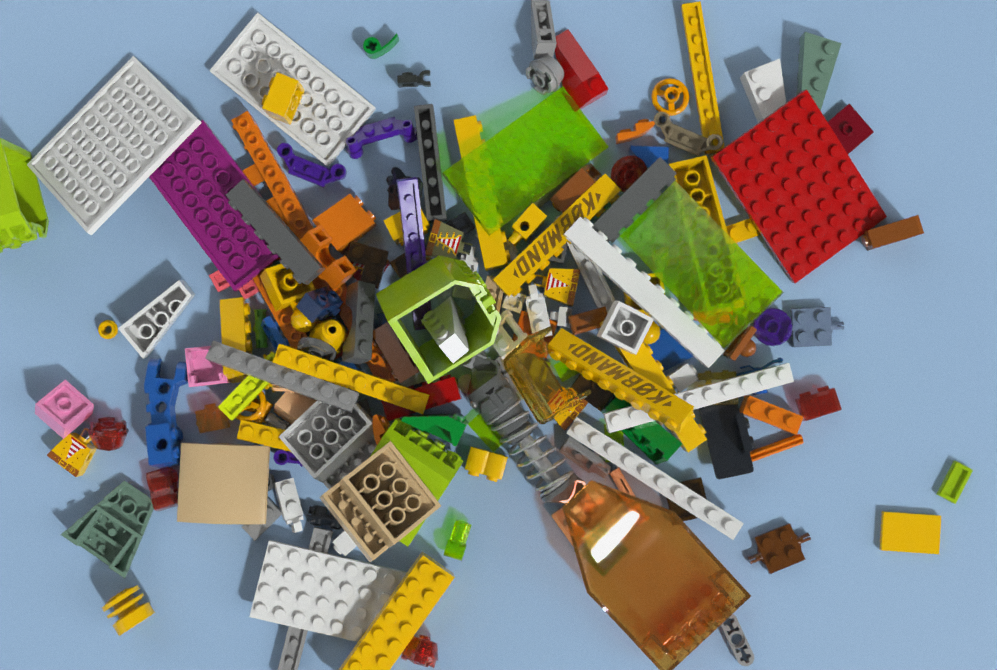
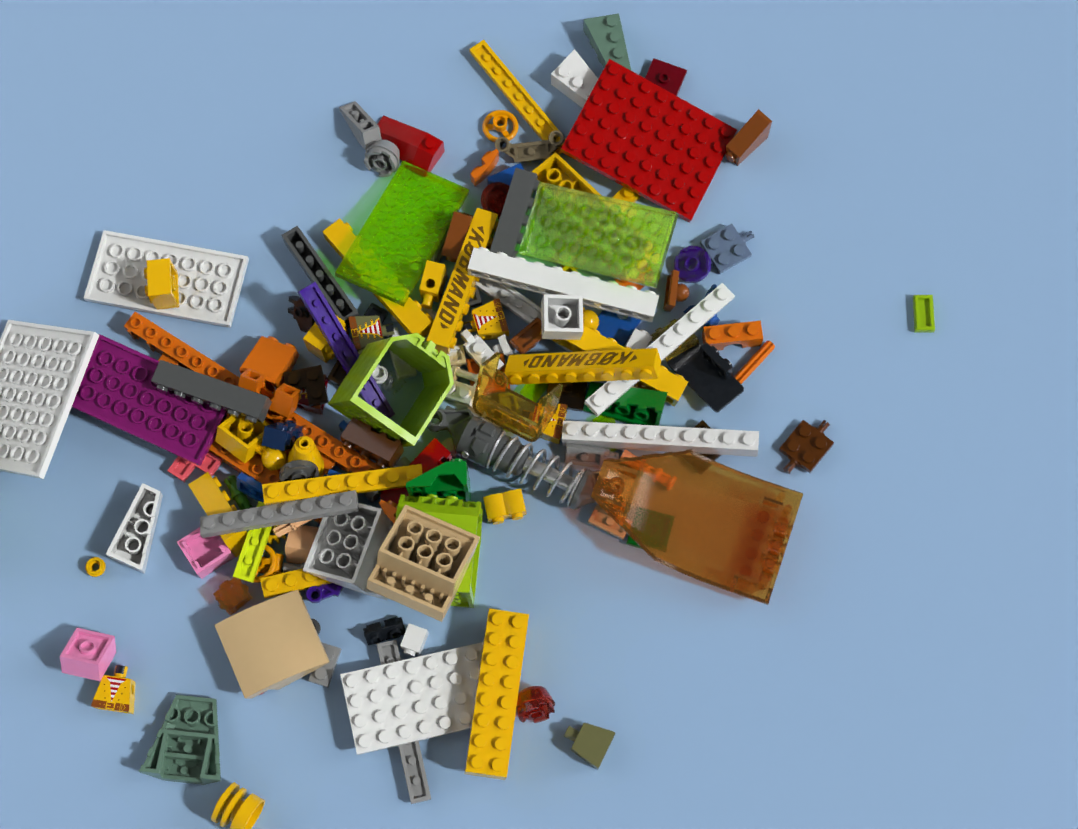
camera: 25 degrees left, 15 degrees down
(108, 433) = (141, 657): clear red cone -> none
(163, 428) = (191, 626): blue brick -> none
(163, 488) = (217, 681): clear red brick -> none
(289, 503) = (343, 635): white hinge -> none
(308, 170) = (216, 337): dark purple plate -> none
(358, 344) = (334, 449): dark grey arch -> none
(379, 131) = (261, 274): dark purple plate -> none
(380, 51) = (222, 210): green panel -> none
(407, 79) = (268, 220): pearl dark grey plate -> none
(448, 328) = (406, 402): white wedge -> none
(457, 543) = (516, 592): clear neon green piece -> none
(484, 431) = (491, 480): clear neon green tile -> none
(737, 653) = (813, 536): light grey beam -> none
(818, 403) = (768, 307): clear red brick -> none
(910, 532) = (911, 374): yellow tile -> none

